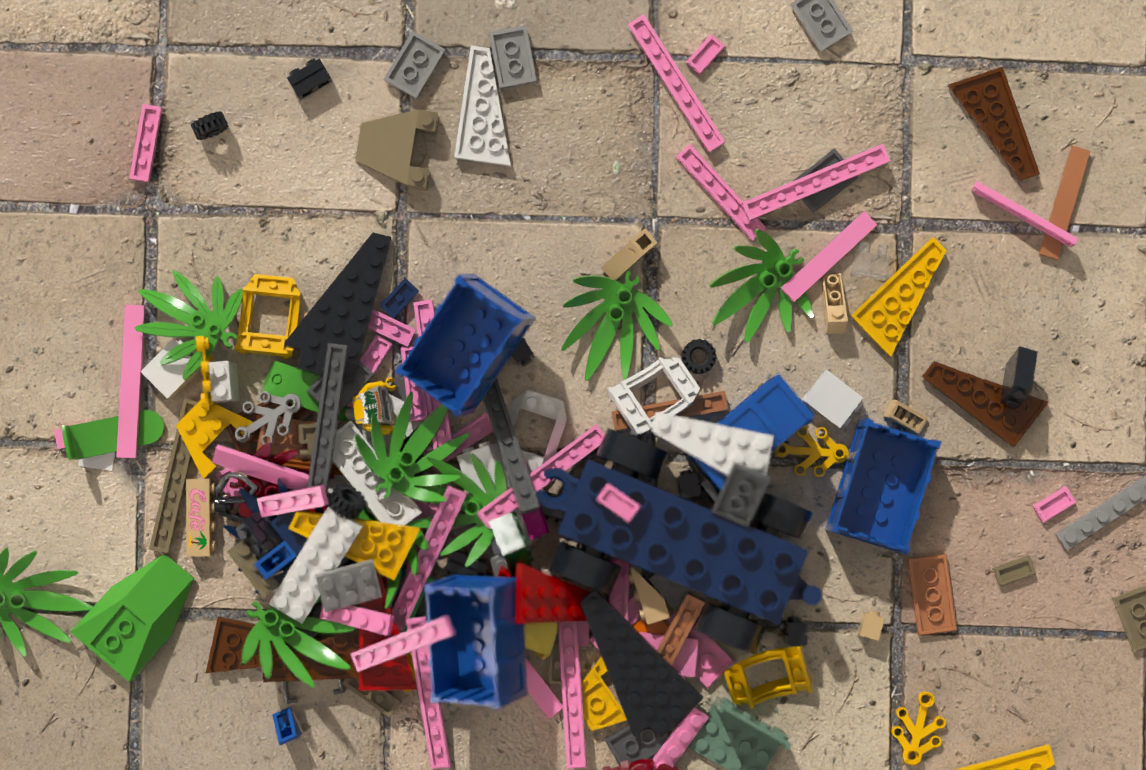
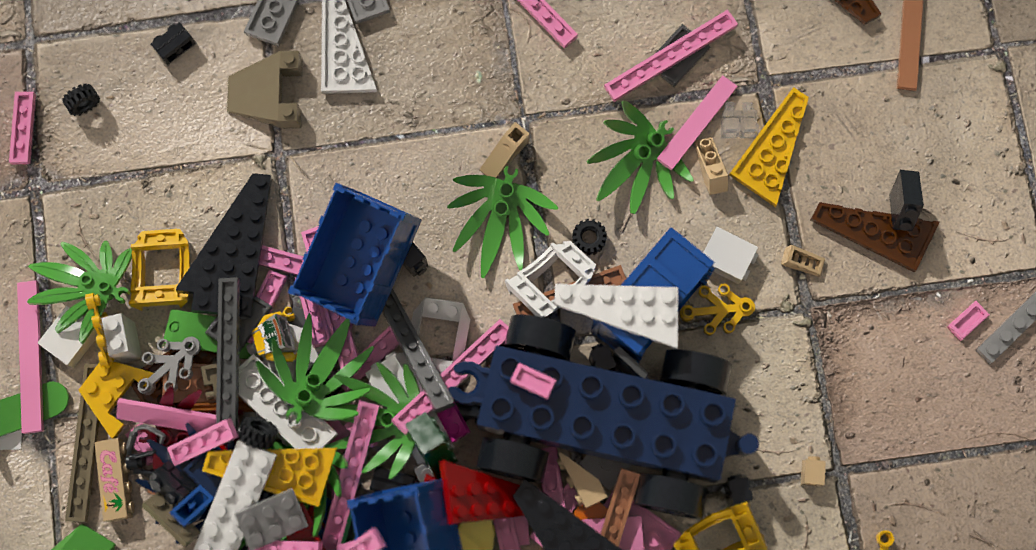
camera: 10 degrees left, 10 degrees down
(399, 298) = (287, 231): dark blue plate -> none
(719, 190) = (579, 80): bright pink tile -> none
(741, 494) = (656, 351): dark grey tile -> none
(882, 486) = (796, 328): blue container -> none
(932, 594) = (867, 431): nougat tile -> none
(1014, 571) = (943, 393): dark tan tile -> none
(1024, 214) = (876, 51): bright pink tile -> none

